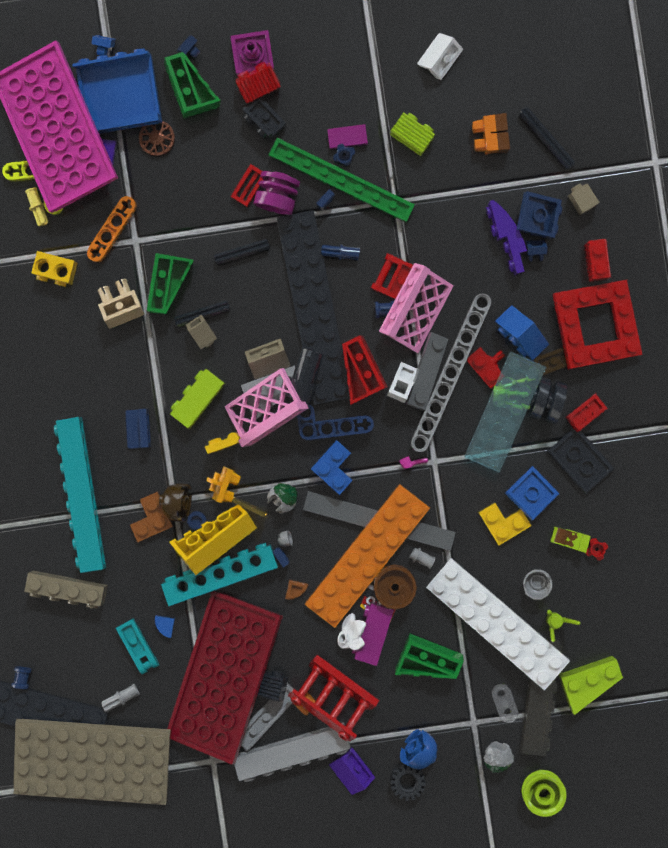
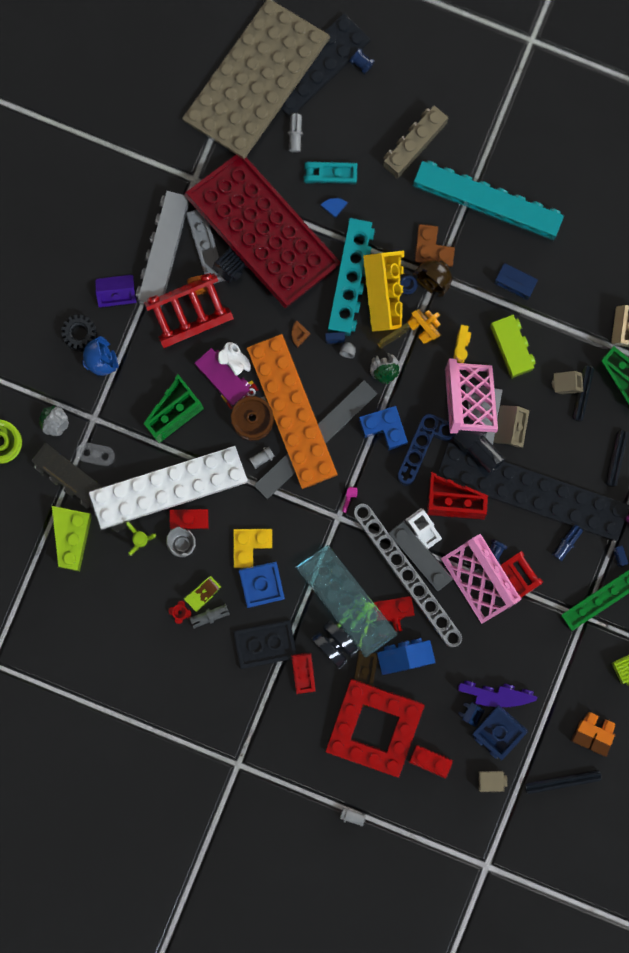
camera: 120 degrees right, 5 degrees down
(512, 588) = (189, 519): none -> red tile
(585, 521) = (209, 616): none -> dark grey pin

